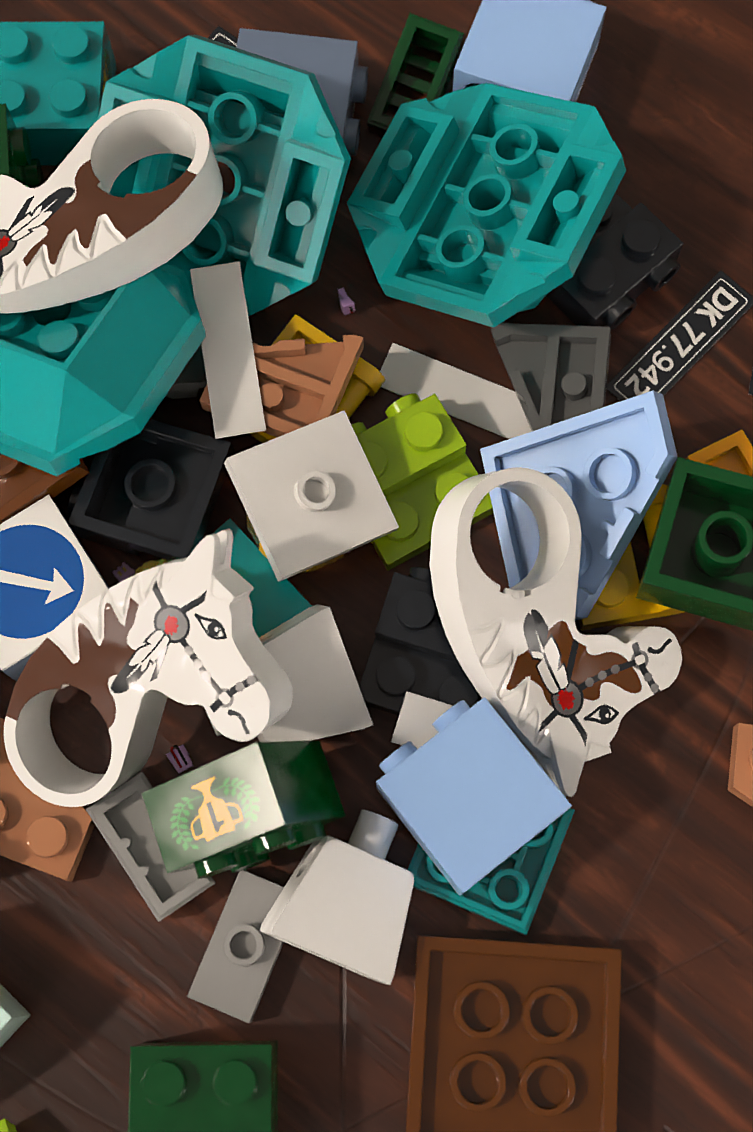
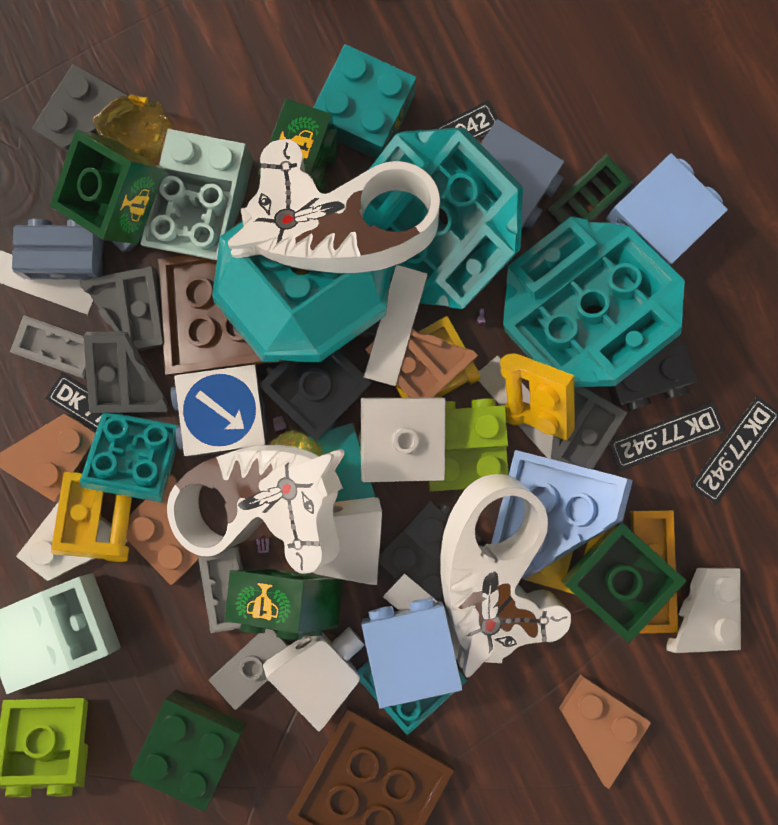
camera: 25 degrees right, 10 degrees up
(492, 344) = (551, 396): none -> yellow plate

